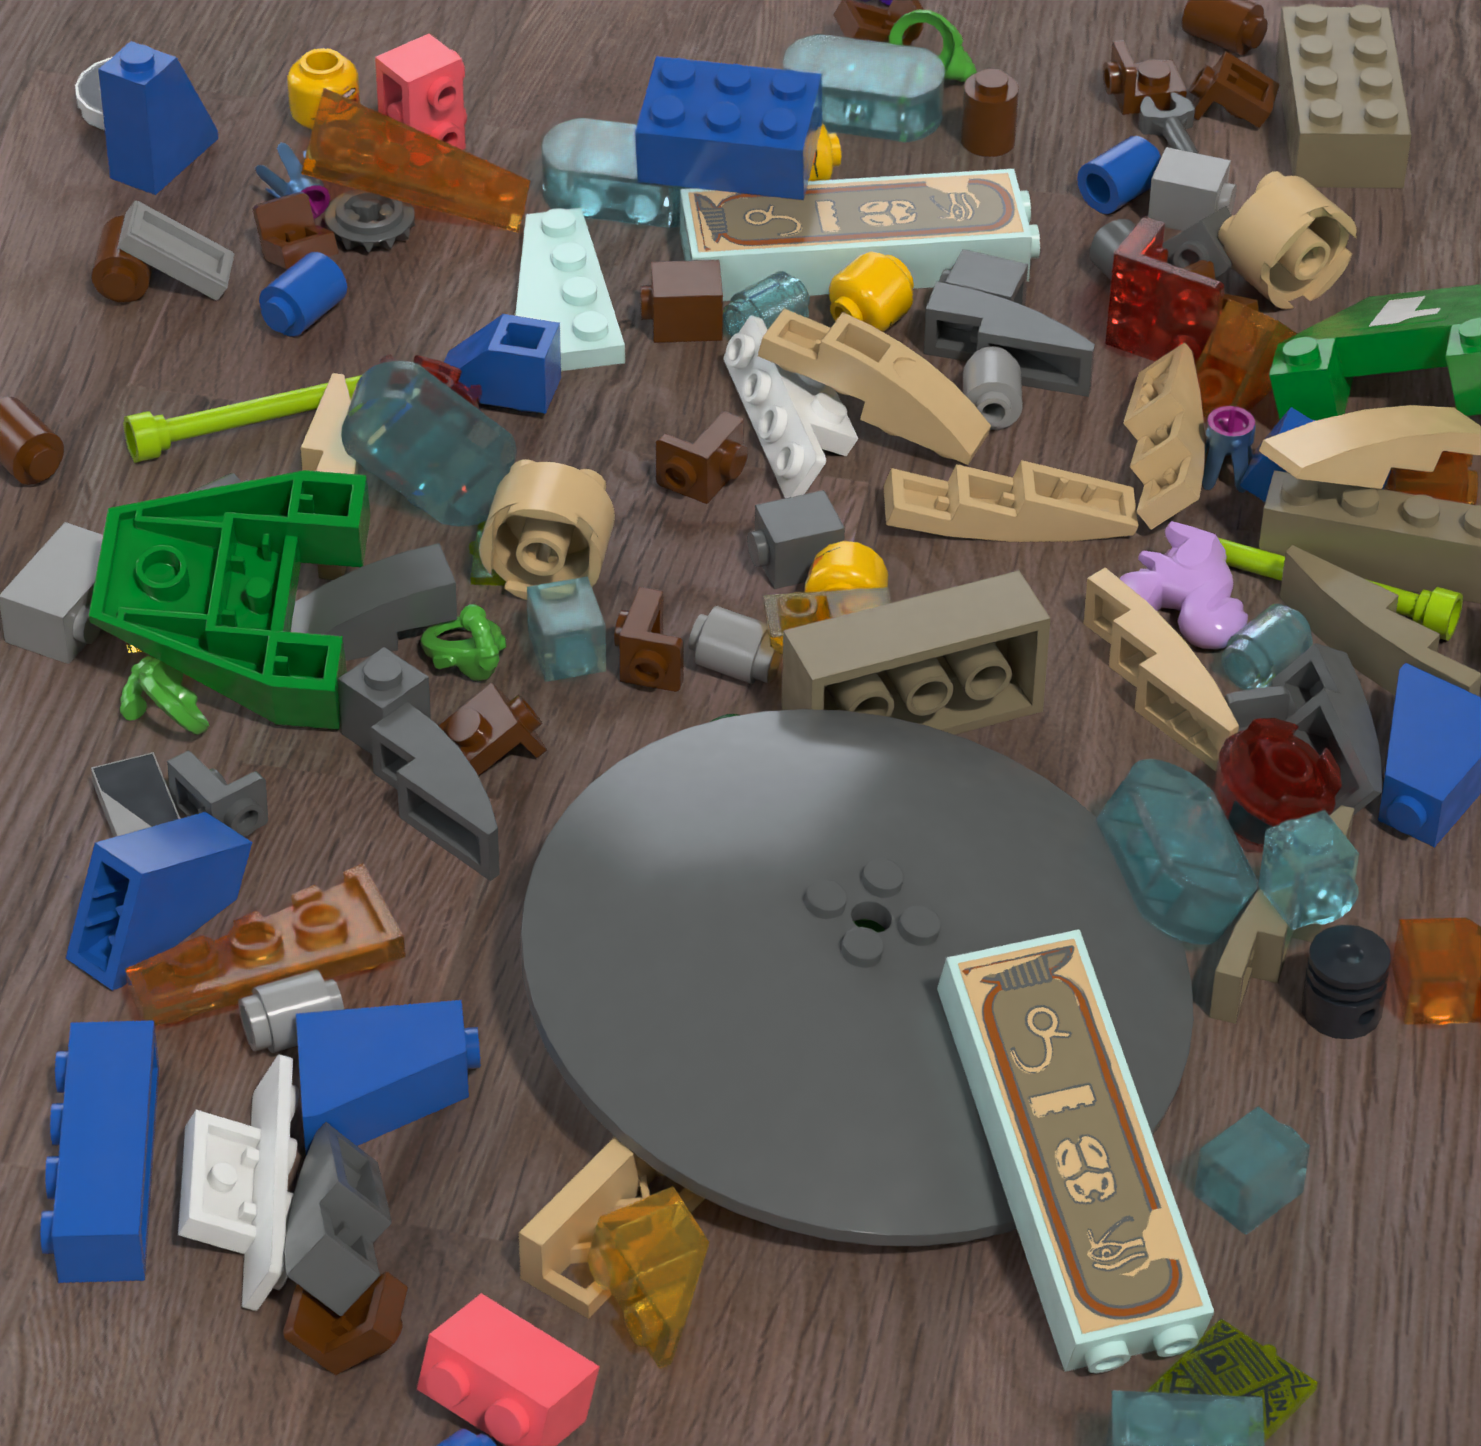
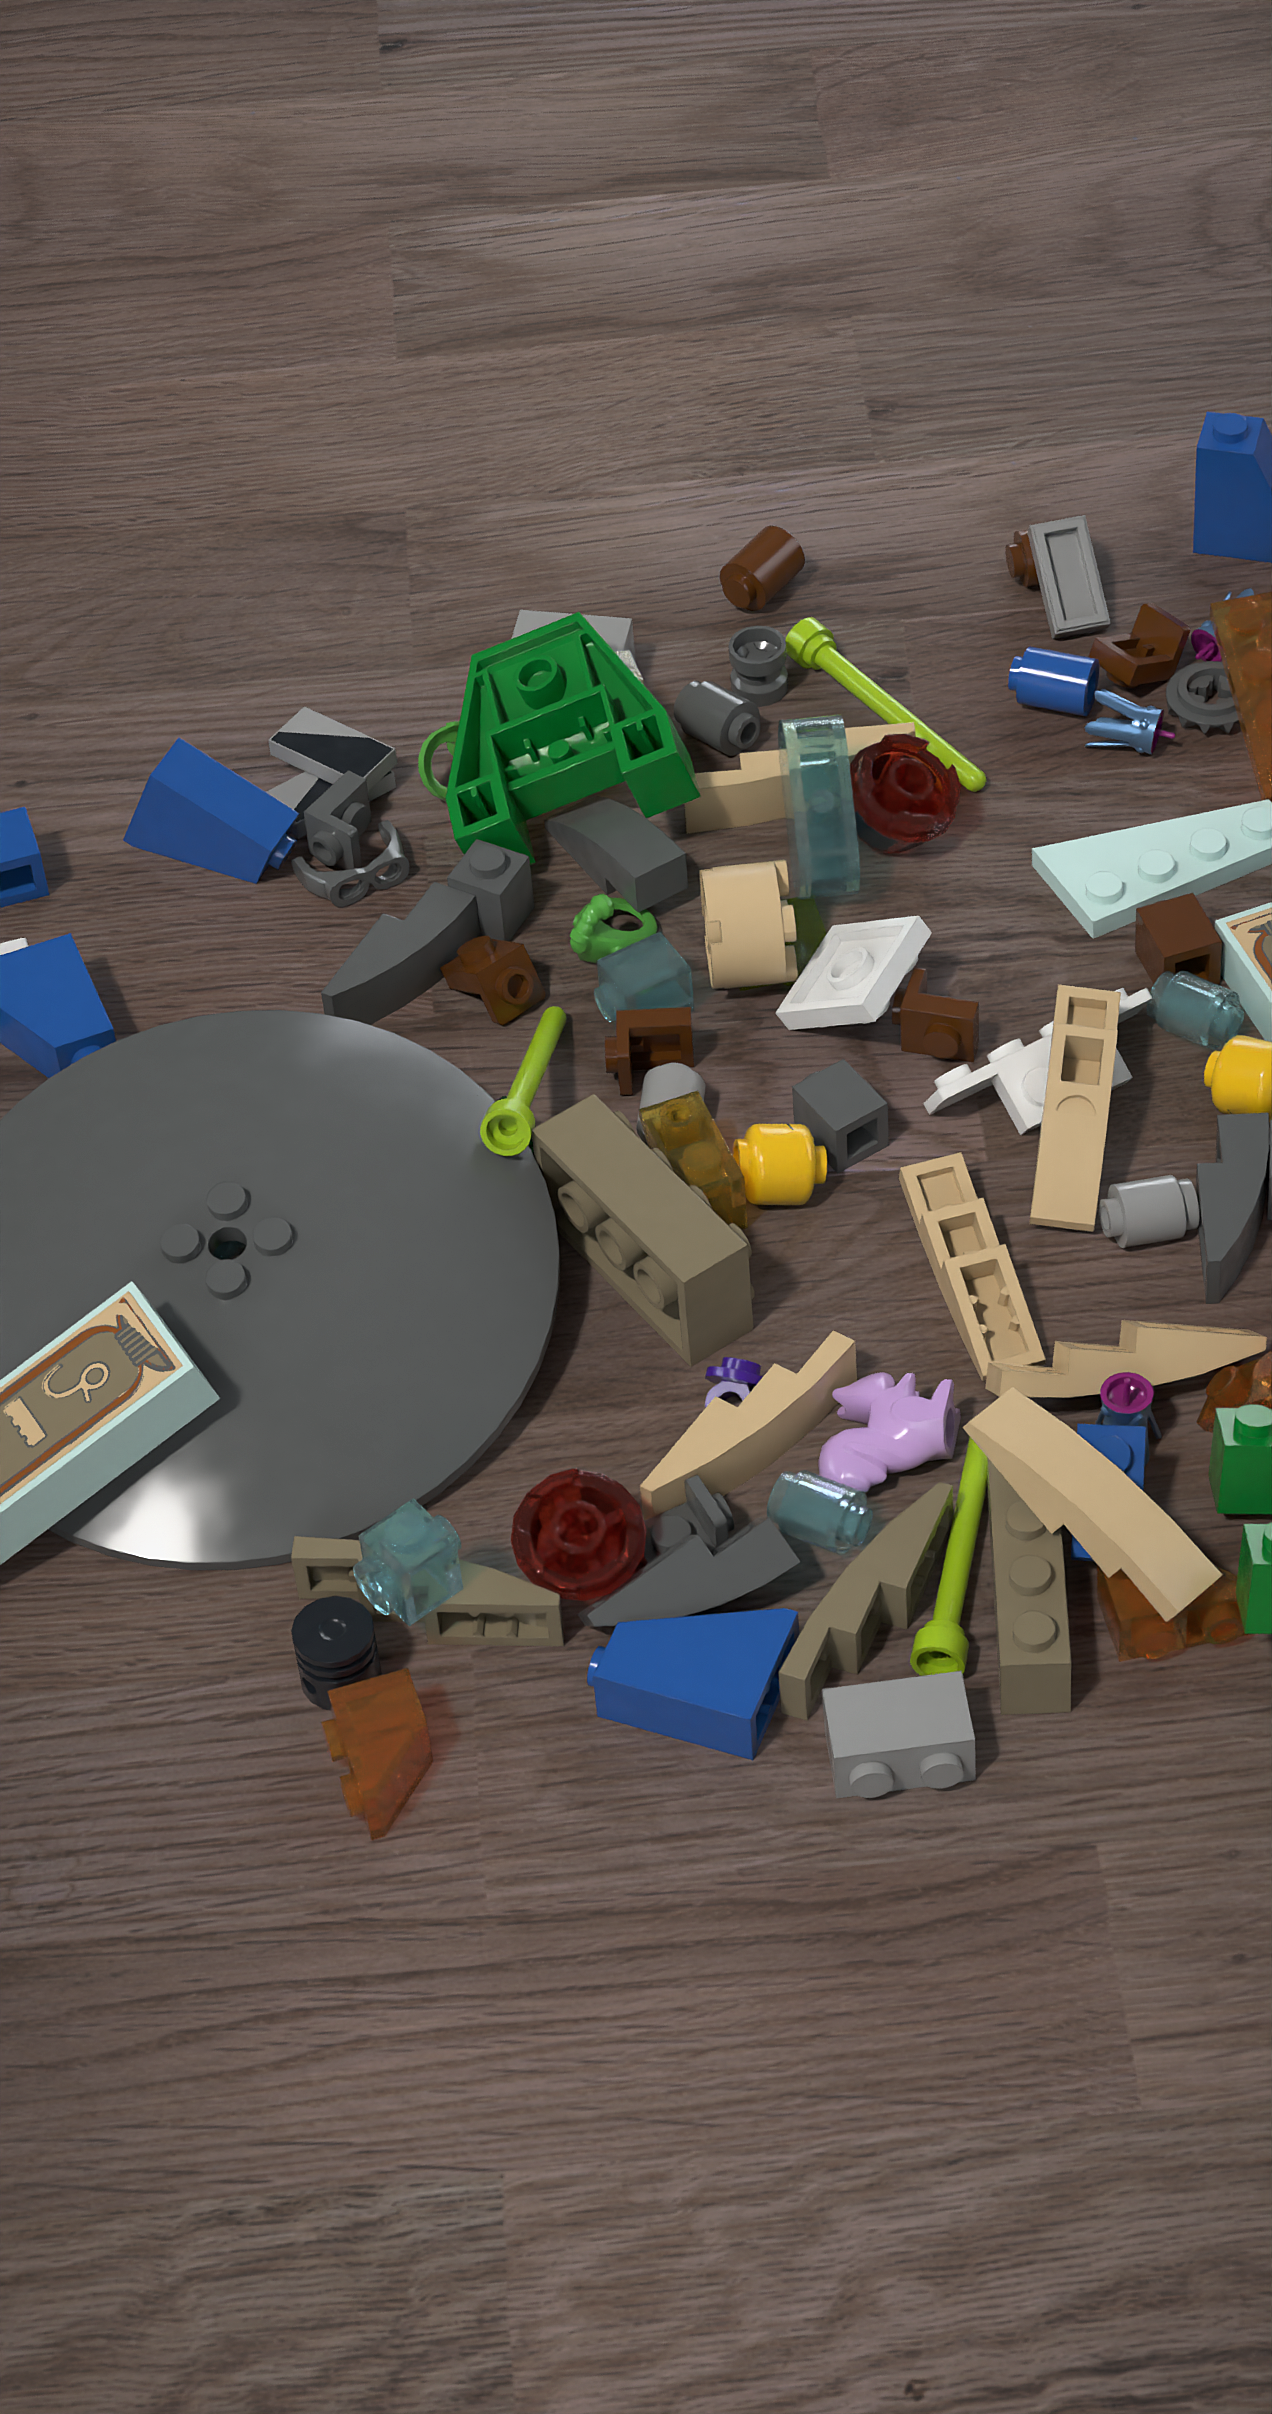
camera: 80 degrees right, 5 degrees up
(105, 783) = (331, 749): none -> tile
(160, 464) = (758, 665): none -> dark grey wheel
(272, 1008) = (104, 941): light grey brick -> none
(294, 827) = (328, 883): none -> dark grey cap
(321, 931) = (180, 917): clear orange wing -> none
(392, 263) = (1139, 733): none -> flat silver piece
(512, 361) = (1001, 849): blue slope -> none
(649, 479) = (854, 973): none -> white plate
(793, 697) = (510, 1121): none -> lime piece
(1099, 669) = (733, 1379): none -> dark purple plate
(1177, 851) = (471, 1471): clear light blue brick -> none
(1252, 1170) = (76, 1627): clear light blue brick -> none

